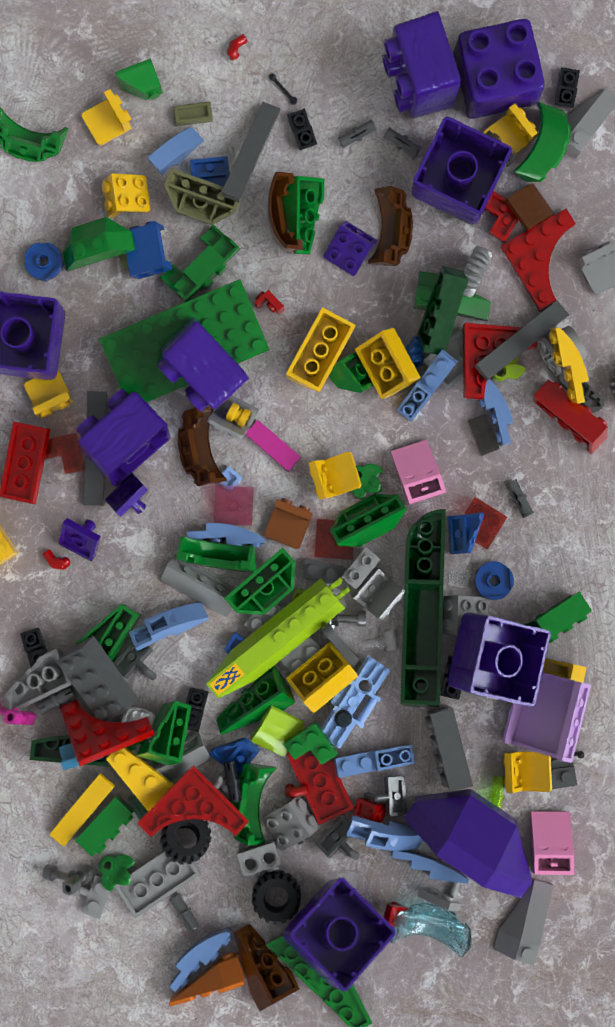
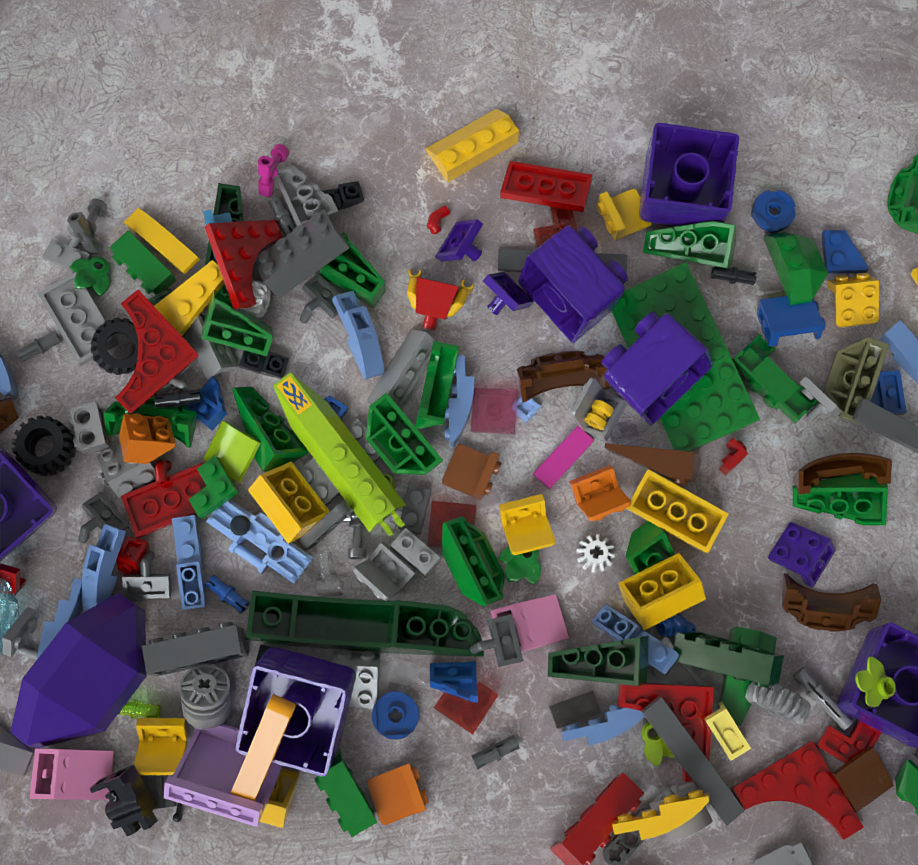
camera: 90 degrees right, 10 degrees down
(79, 326) = (701, 243): none -> green wedge
(82, 204) = (841, 254): none -> blue wing
(105, 298) = (733, 275): none -> black pin
(133, 559) = (435, 298): none -> red torso
(224, 226) = (825, 404): none -> light grey plate
(270, 806) = (145, 438): none -> orange slope
(280, 354) = (672, 464): none -> reddish brown wedge
(307, 414) = (599, 494): none -> orange bracket
(361, 414) = (602, 559): none -> white gear
(399, 726) = (227, 593): none -> blue pin
(435, 492) = (503, 641): none -> dark grey plate
(449, 408) = (608, 662): none -> dark green wedge
(460, 241) = (803, 678): none -> light grey pin
(462, 194) = (875, 683): none -> lime plate
(496, 732) = (205, 696): none -> light grey wheel
(498, 312) = (727, 732): none -> light yellow panel
(533, 682) = (263, 748): none -> beam
(555, 576) = (397, 794): none -> orange bracket
(571, 794) = (128, 800): none -> black hips

